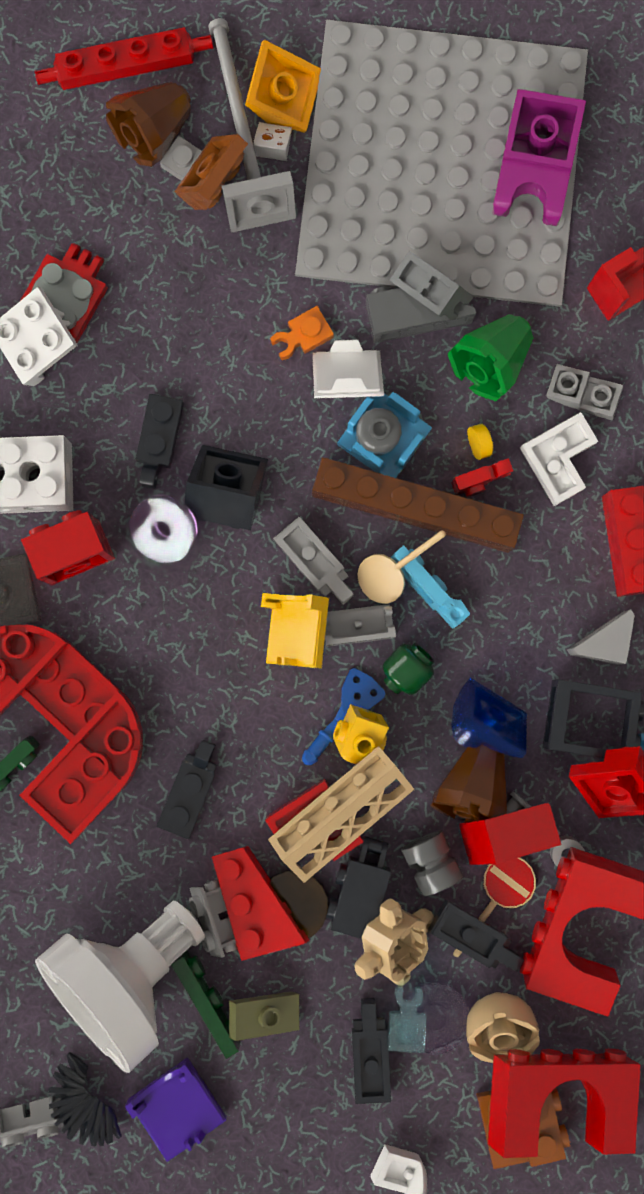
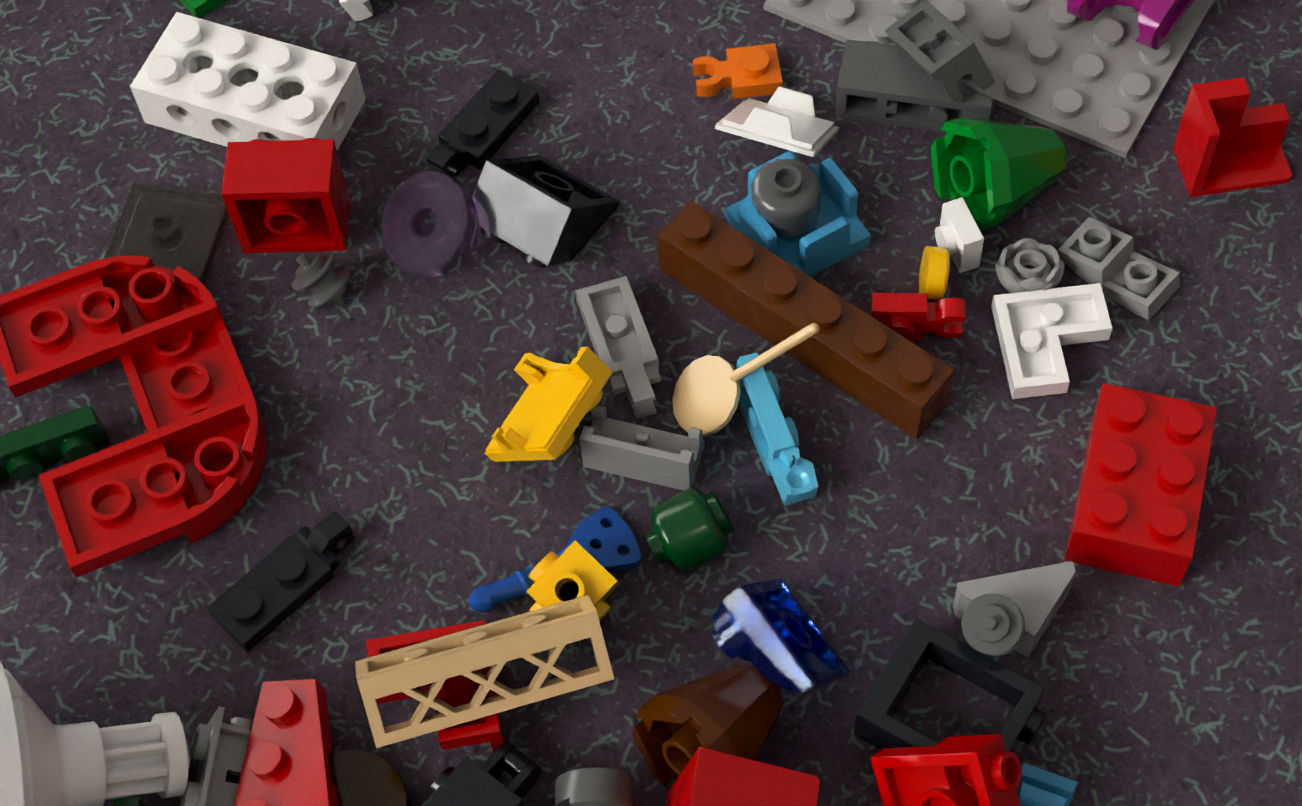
camera: 30 degrees right, 25 degrees down
(114, 591) = (321, 280): none -> dark grey wheel
(485, 409) = (960, 235): none -> white plate
(537, 406) = (1029, 266): none -> light grey plate
(604, 670) = (993, 624): none -> dark grey wheel

